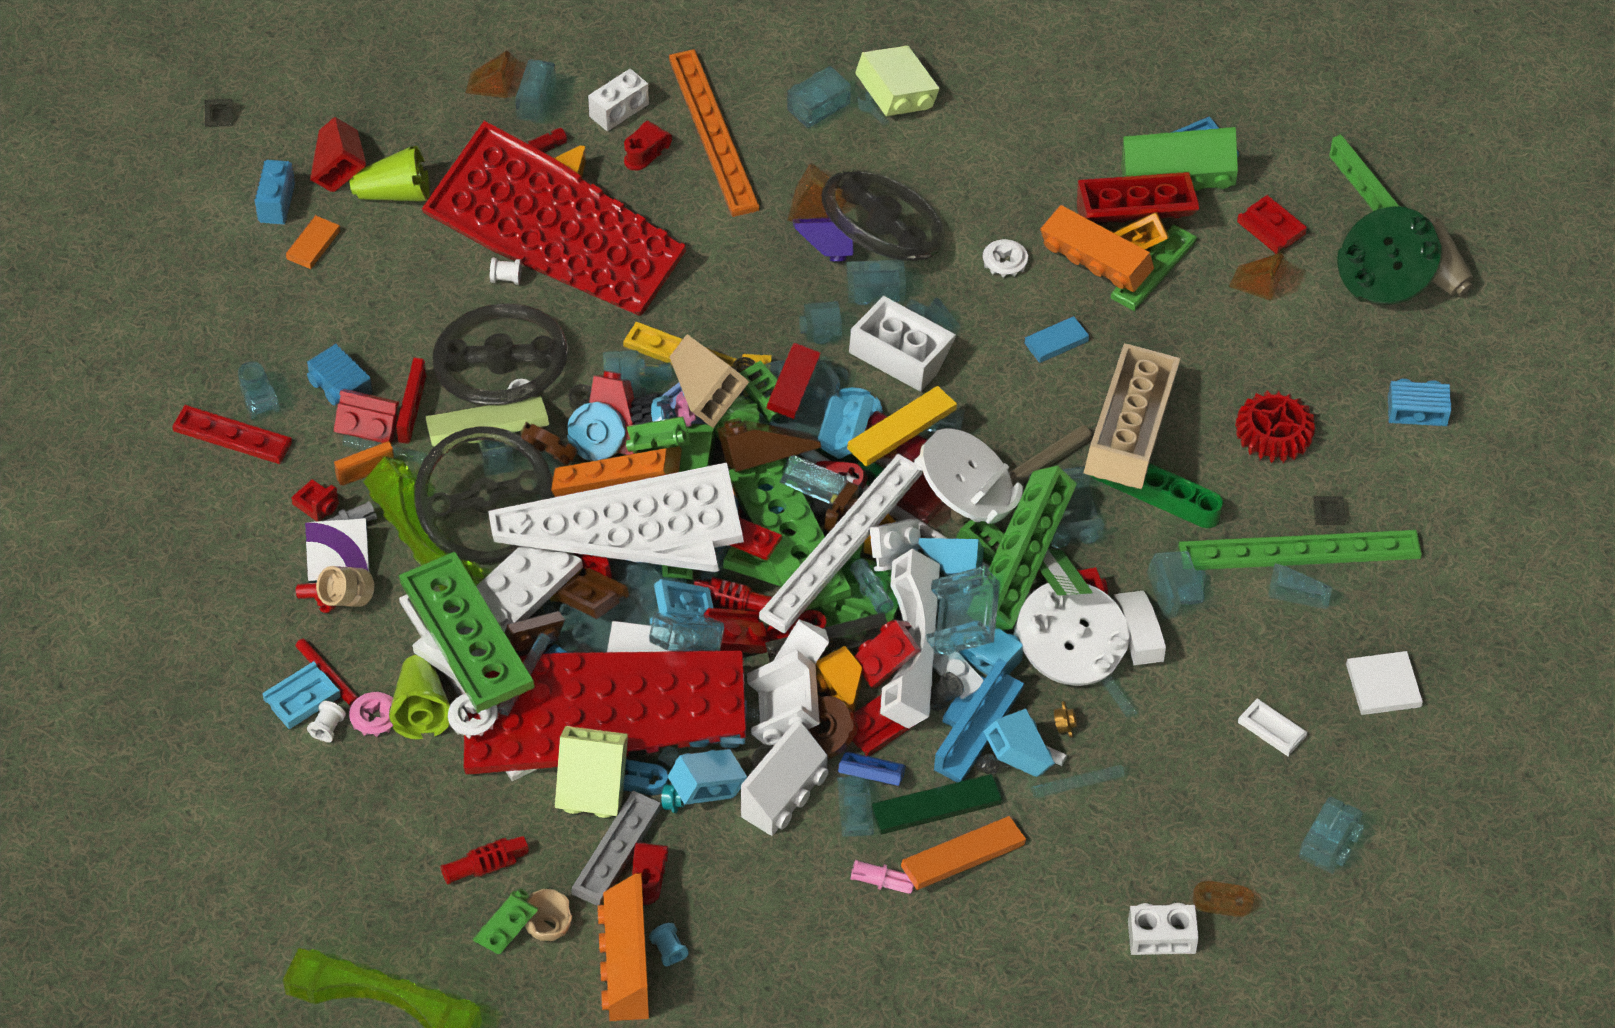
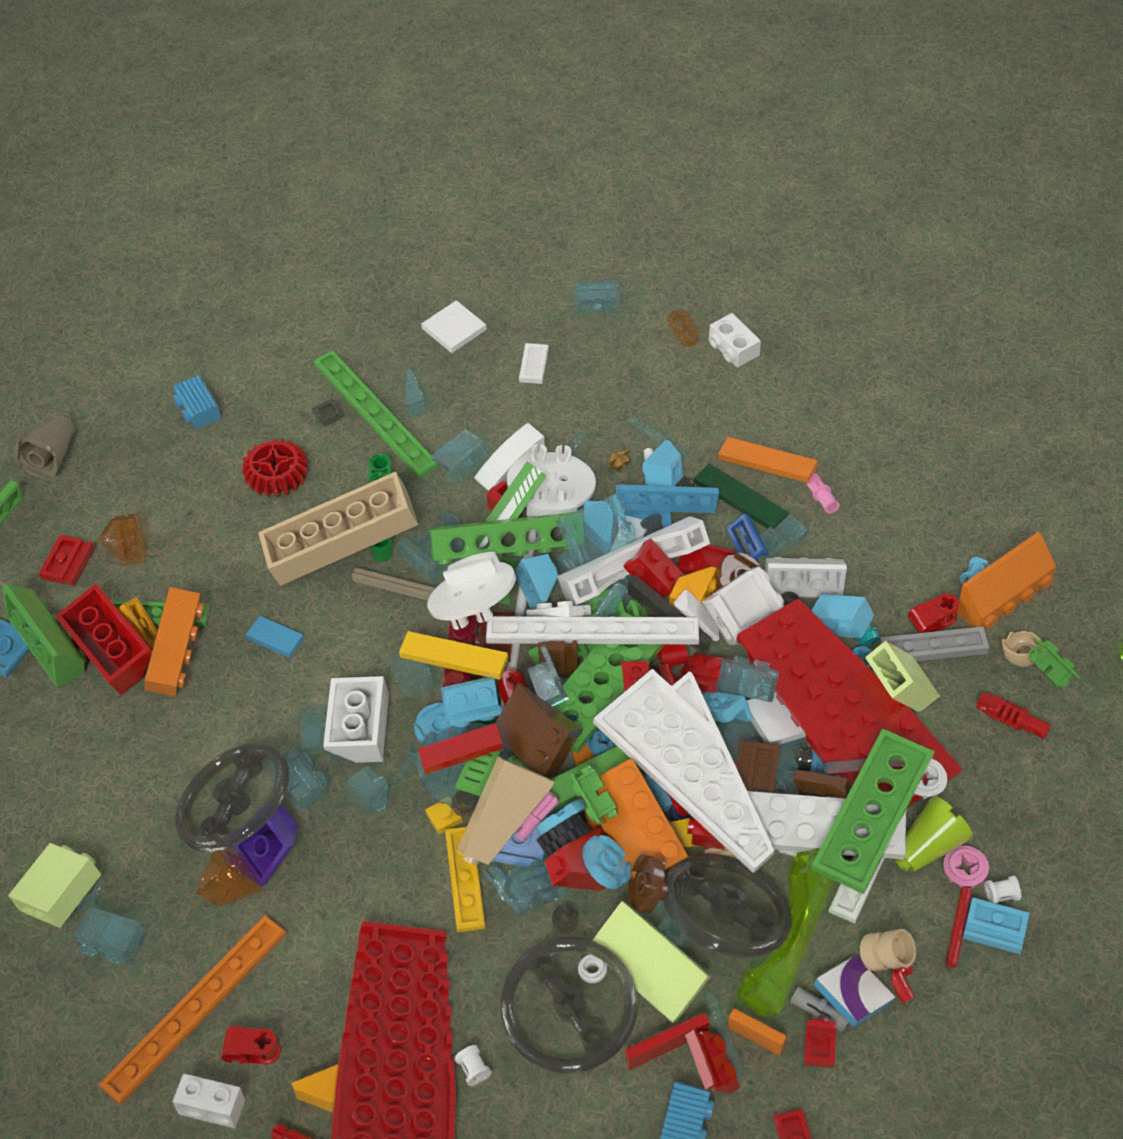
camera: 120 degrees left, 0 degrees up
(1003, 248) = (204, 703): white gear -> none
(1369, 264) = (82, 475): dark green piece -> none

